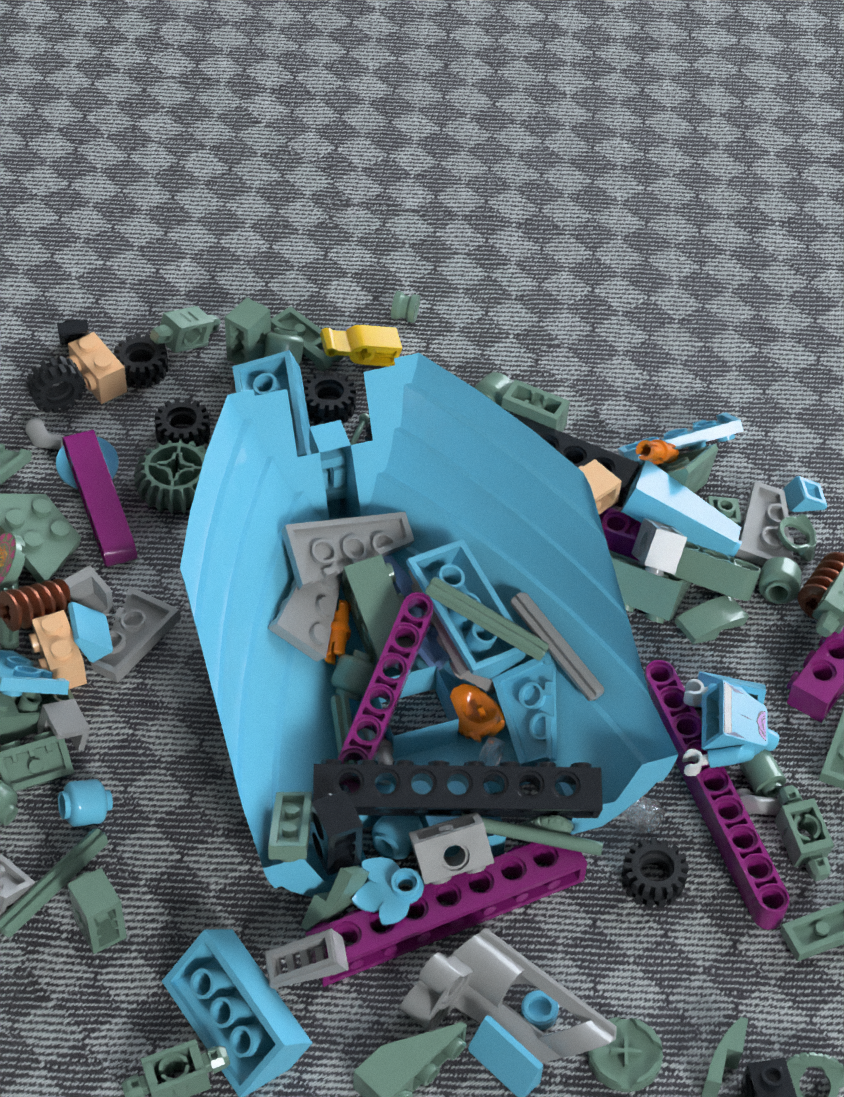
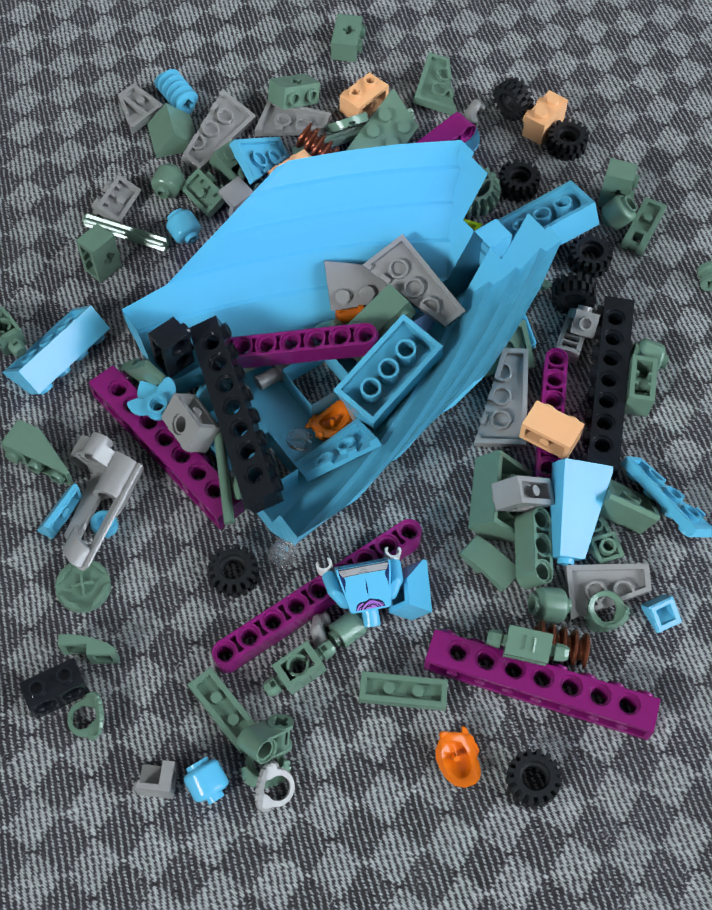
camera: 75 degrees right, 10 degrees up
(72, 330) = (566, 91): black plate -> none
(185, 329) = (603, 147): sand green piece -> none
(290, 826) = (152, 315): sand green plate -> none
(323, 967) = (90, 370): light grey slope -> none
(363, 344) = (650, 257): yellow piece -> none
(487, 618) = (377, 382): sand green axle -> none
(558, 647) = (380, 439): light grey axle -> none
(657, 451) = (625, 472): orange pin -> none

